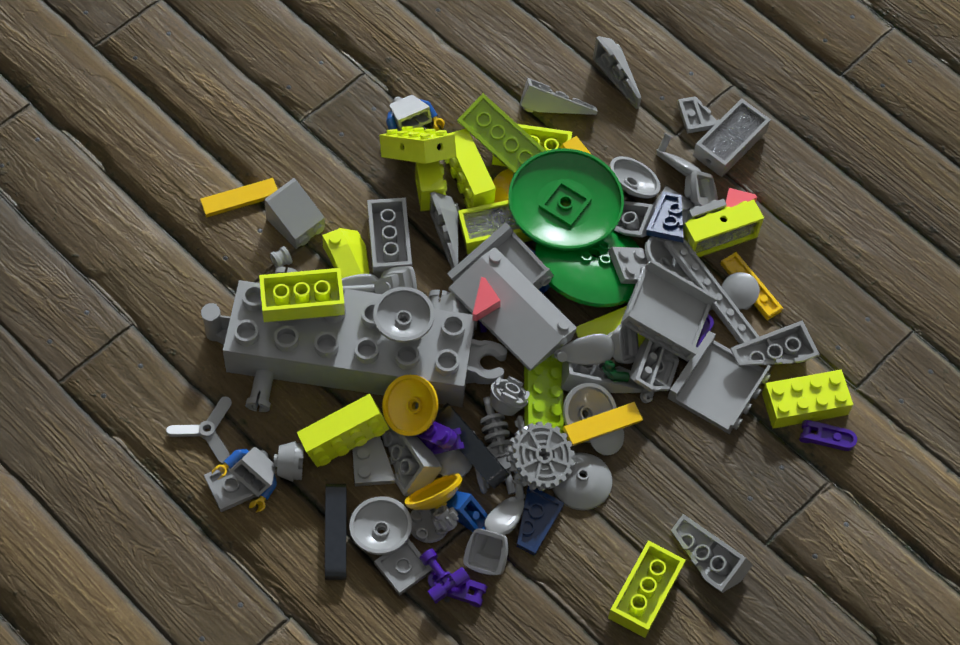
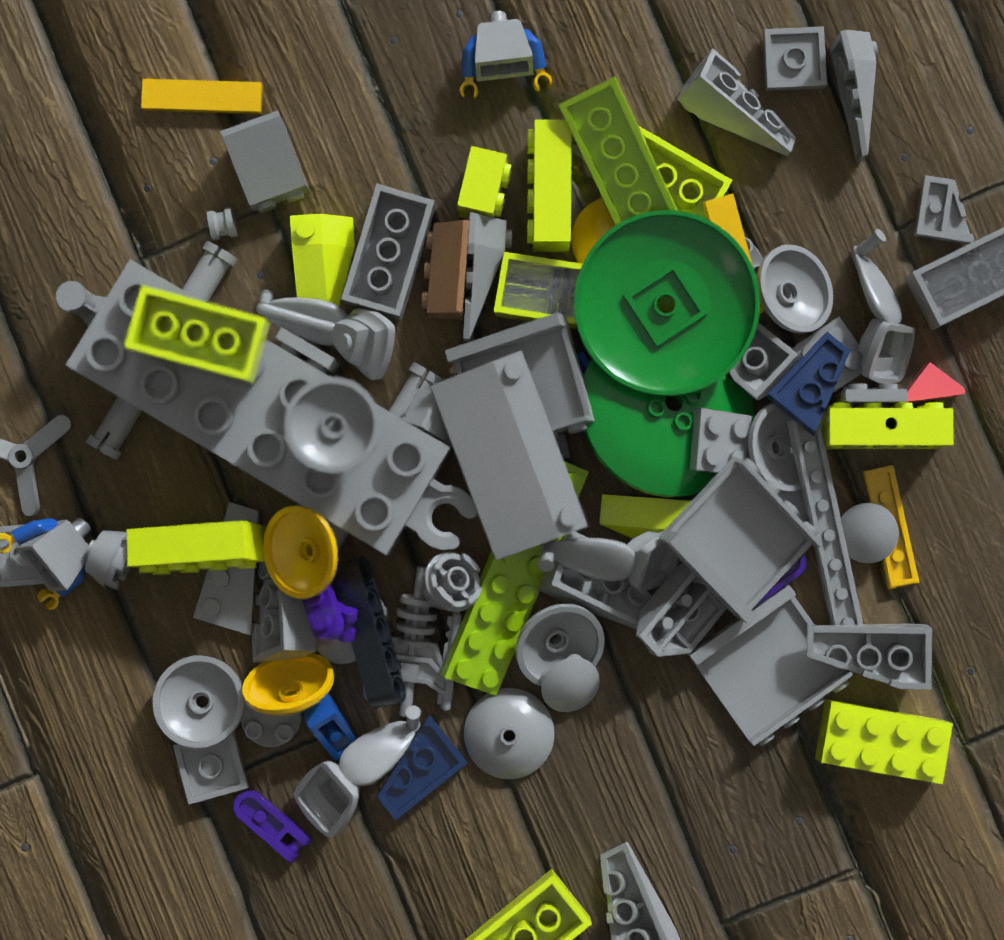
camera: 25 degrees right, 25 degrees up
(335, 531) = (139, 679): black beam -> none
(418, 145) = (483, 124): neon yellow brick -> none
(429, 235) = (447, 270): none -> medium nougat slope
(445, 518) = (289, 730): light grey gear -> none
(445, 580) = (254, 818): dark purple bar -> none
(486, 300) = (469, 436): coral slope -> none
(526, 454) = (466, 714): light grey piece -> none
(576, 67) = (794, 58): none -> light grey plate
(602, 424) = (567, 675): yellow tile -> none
(608, 369) = (617, 601): dark green arm -> none
(828, 435) = (888, 806): dark purple plate -> none

